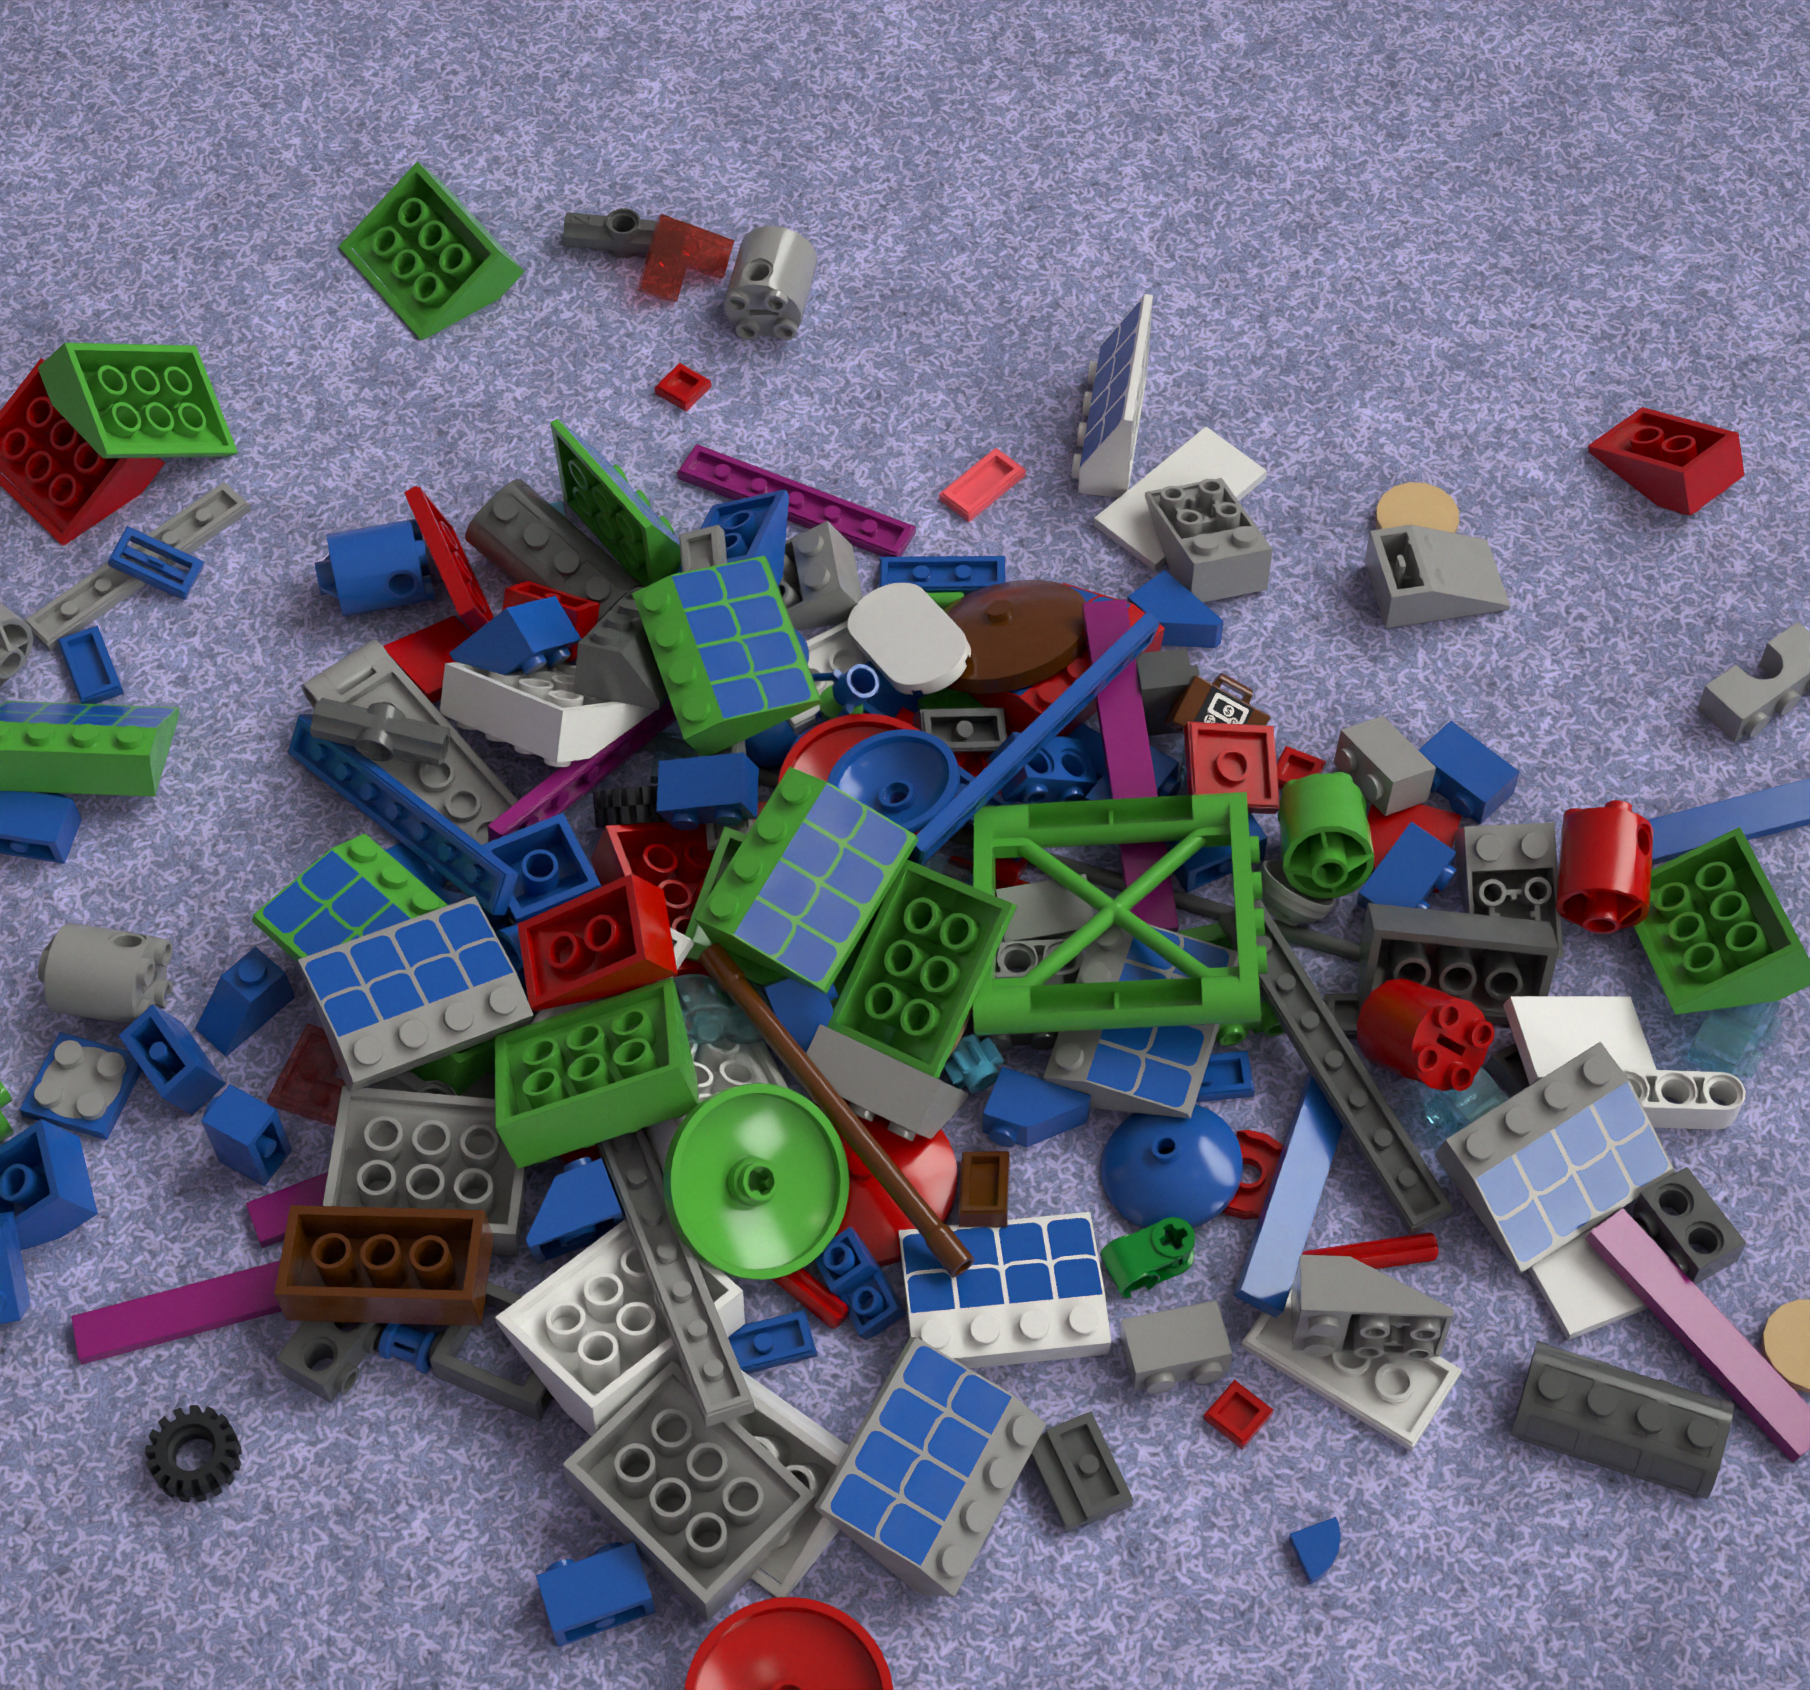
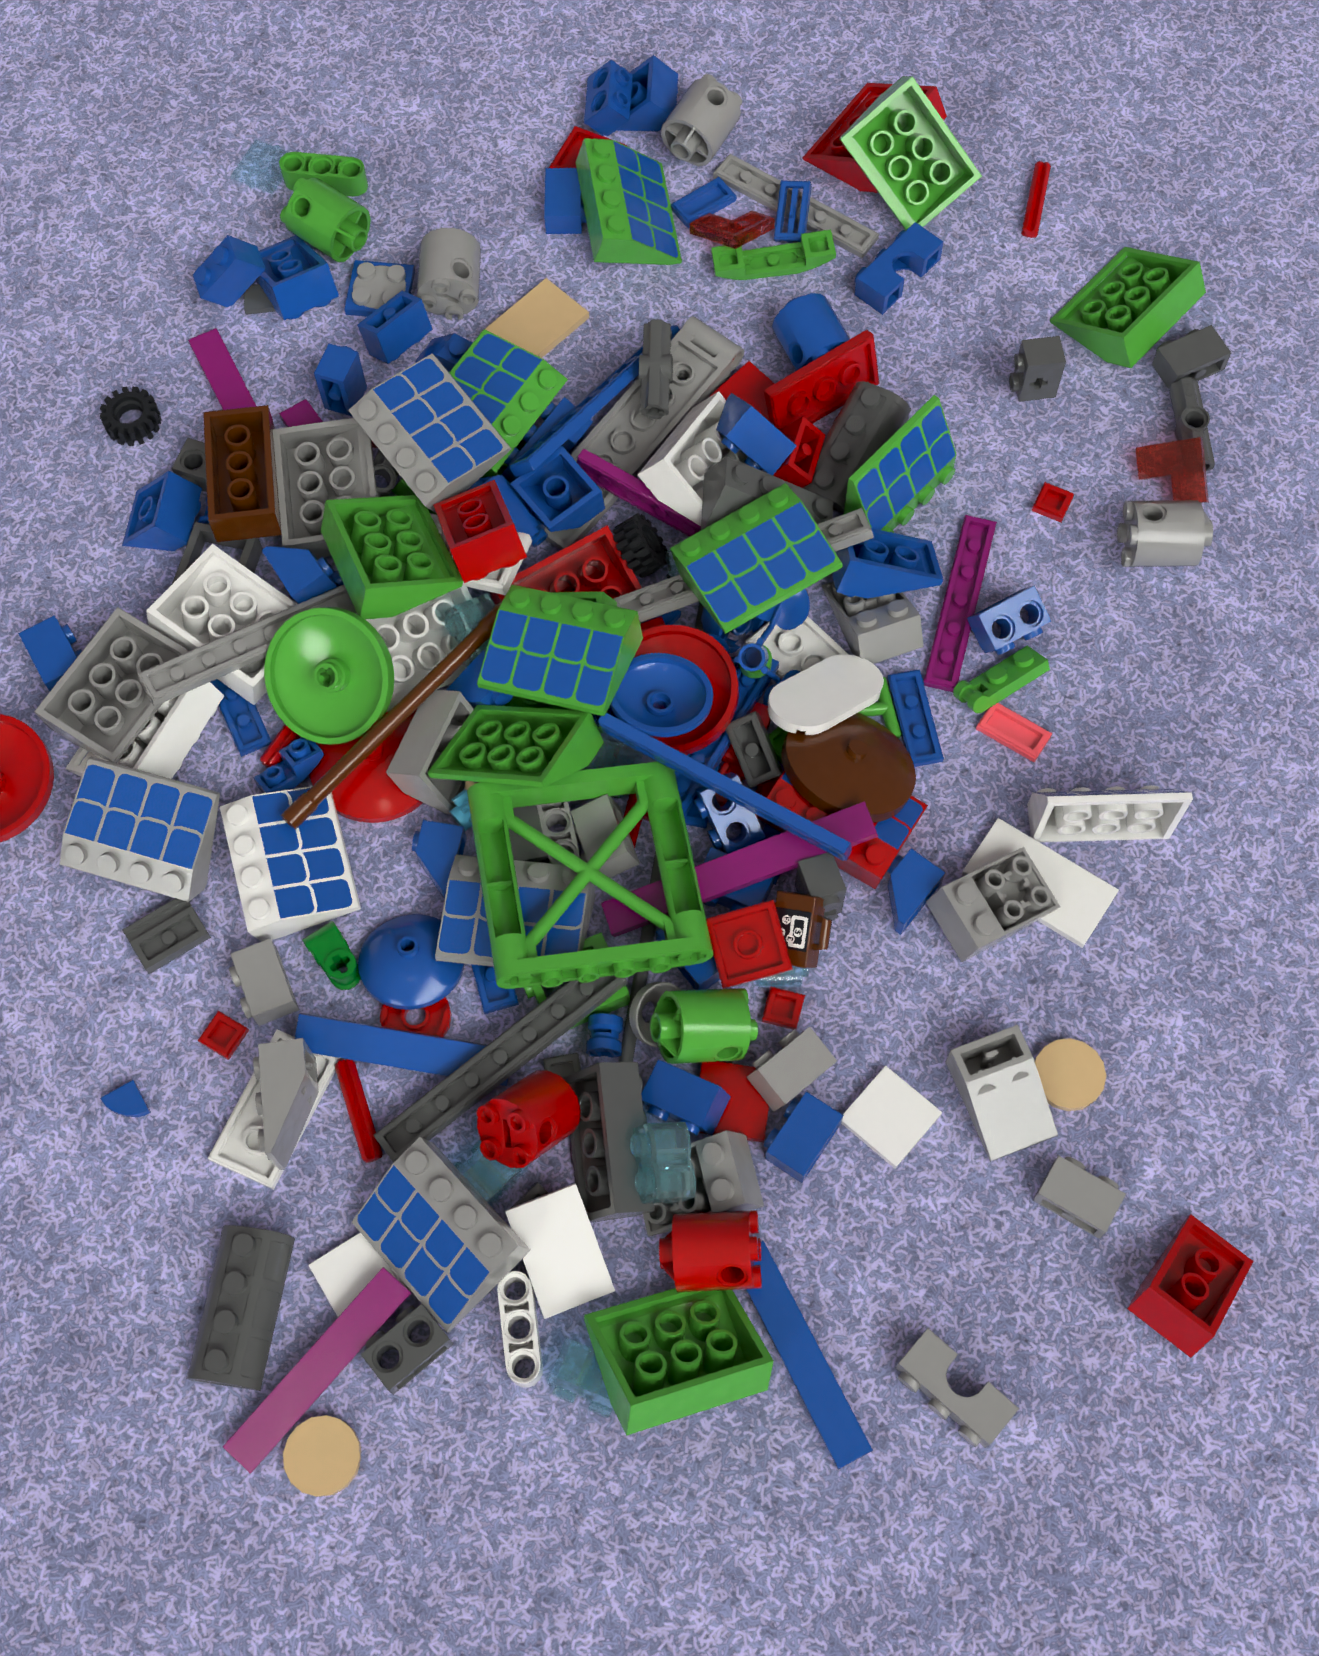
camera: 80 degrees right, 10 degrees up
(42, 1256) = (256, 301): none -> dark grey tile
(165, 632) = (732, 232): none -> clear red tile
(215, 893) = (540, 319): none -> tan tile
(221, 595) = (773, 261): none -> bright green slope
(234, 314) = (1036, 199): none -> red axle
(303, 491) = (911, 250): none -> blue arch
(389, 1421) = (163, 513): none -> blue slope
(505, 349) = (1038, 369): none -> dark grey brick
(530, 214) = (1192, 356): none -> dark grey brick
(707, 790) = (644, 580): blue brick -> none
(841, 452) = (1007, 616): none -> brick
(914, 478) = (1001, 680): none -> bright green plate
(984, 1189) = (371, 835): reddish brown tile -> none
(1320, 956) = (604, 1035): none -> blue wheel
(1445, 688) = (890, 1117): none -> white tile
(1504, 892) = (663, 1162): none -> clear light blue brick
(1562, 531) = (1080, 1196): none -> light grey brick

